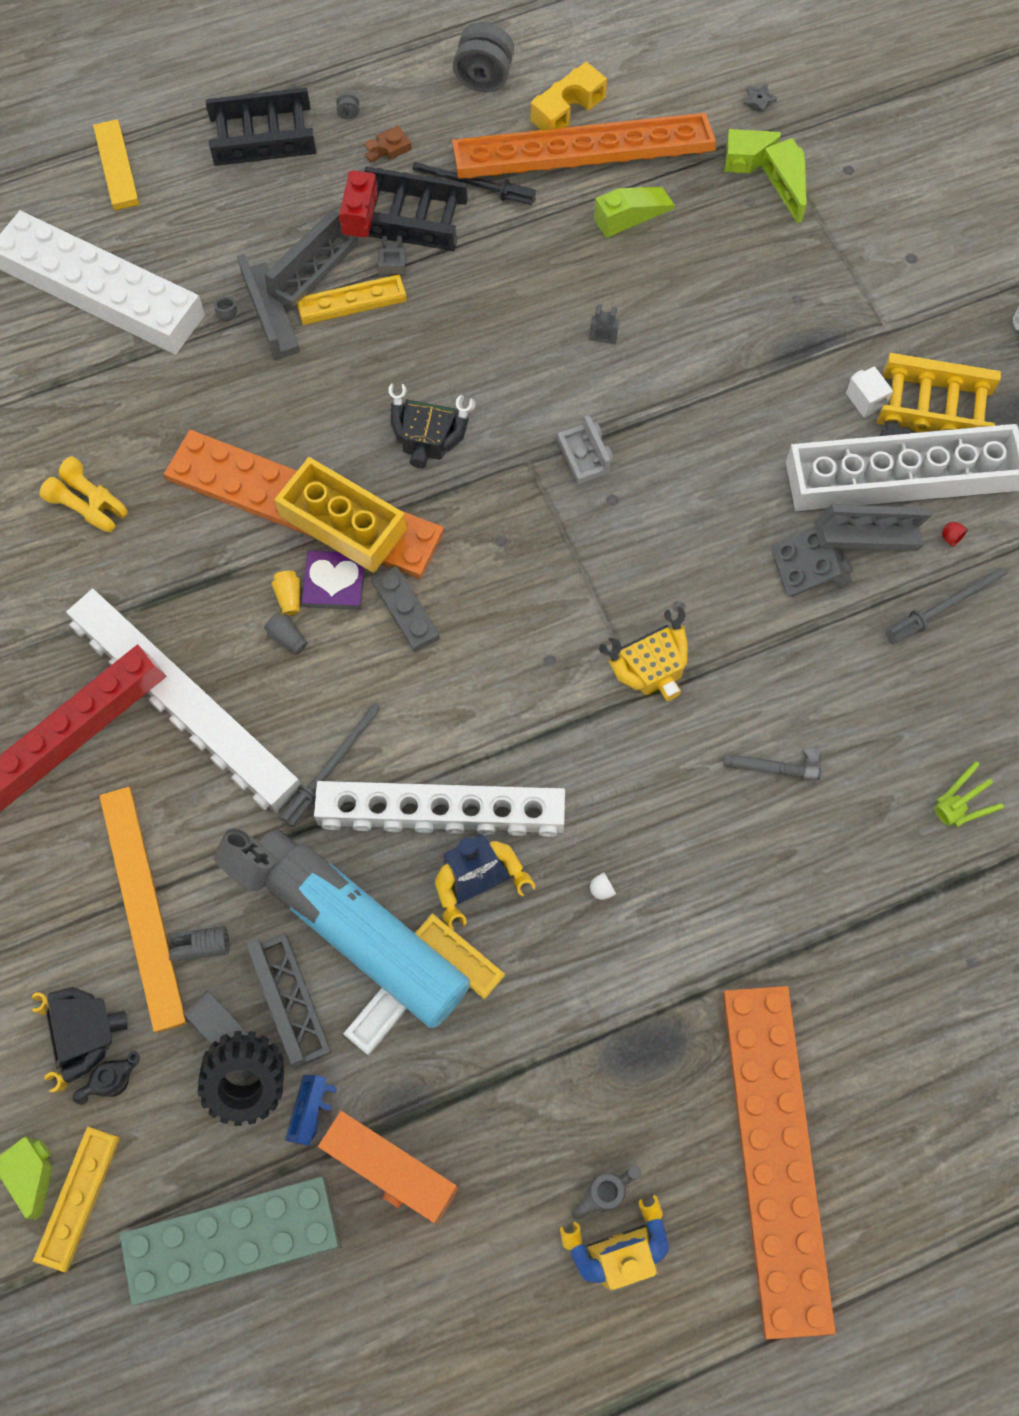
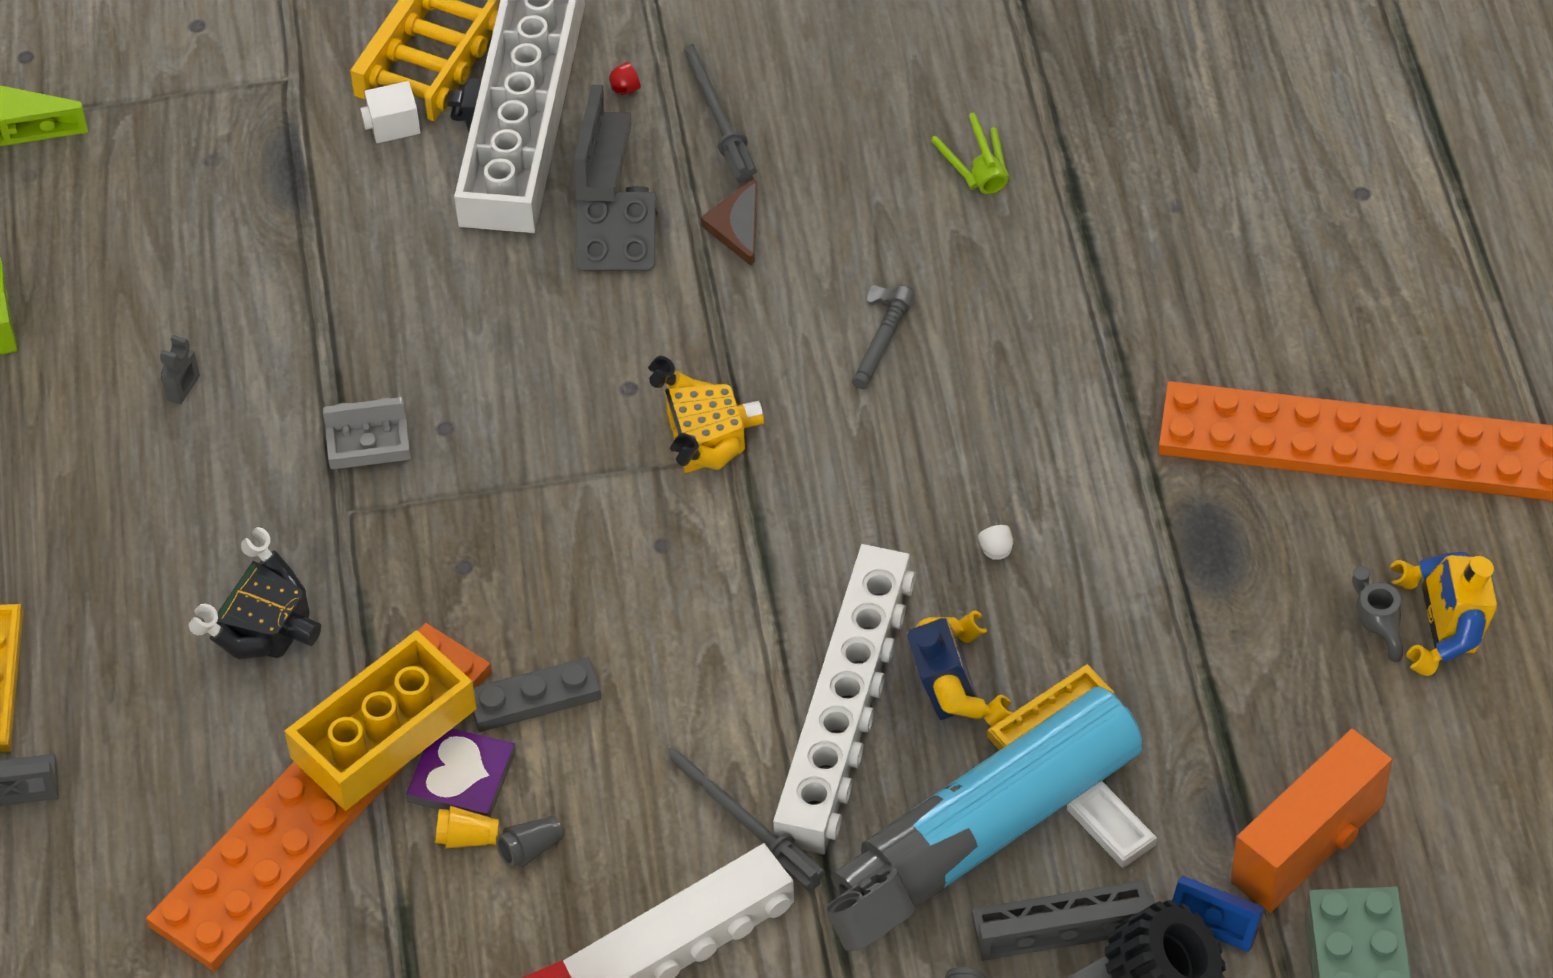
camera: 75 degrees left, 15 degrees down
(849, 640) = (735, 221): none -> reddish brown tile

